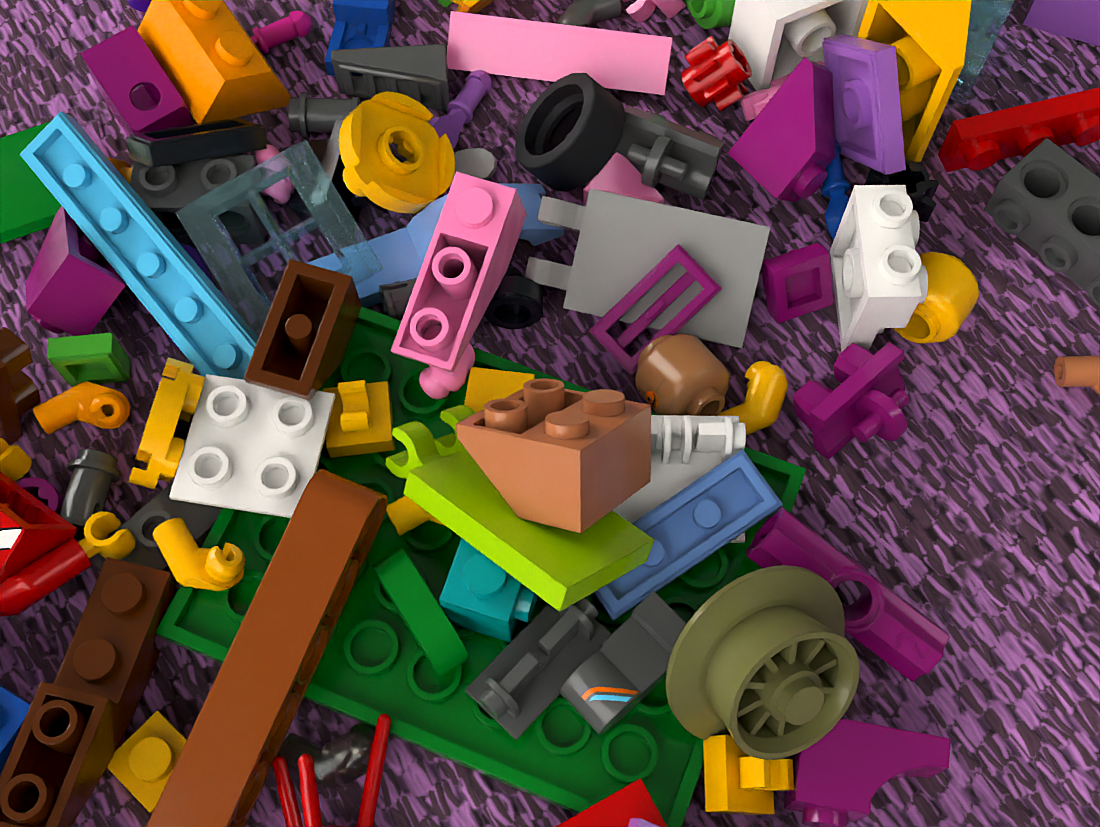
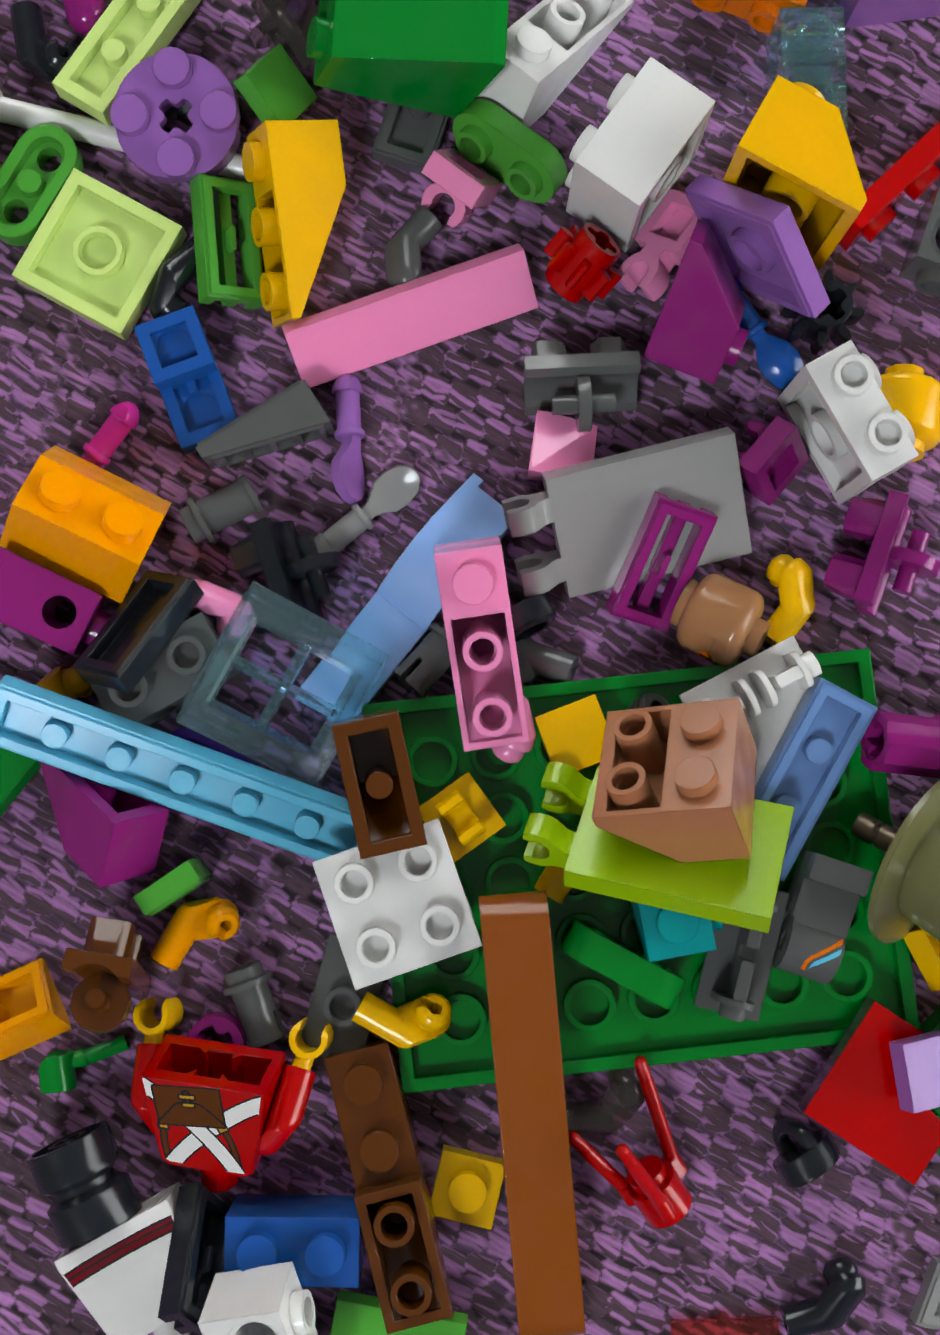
camera: 30 degrees left, 20 degrees up
(172, 401) = (292, 918): yellow plate -> none
(375, 171) = (313, 555): yellow plate -> none
(503, 340) = (544, 661): none -> dark grey arm
(571, 160) = (521, 416): black tyre -> none

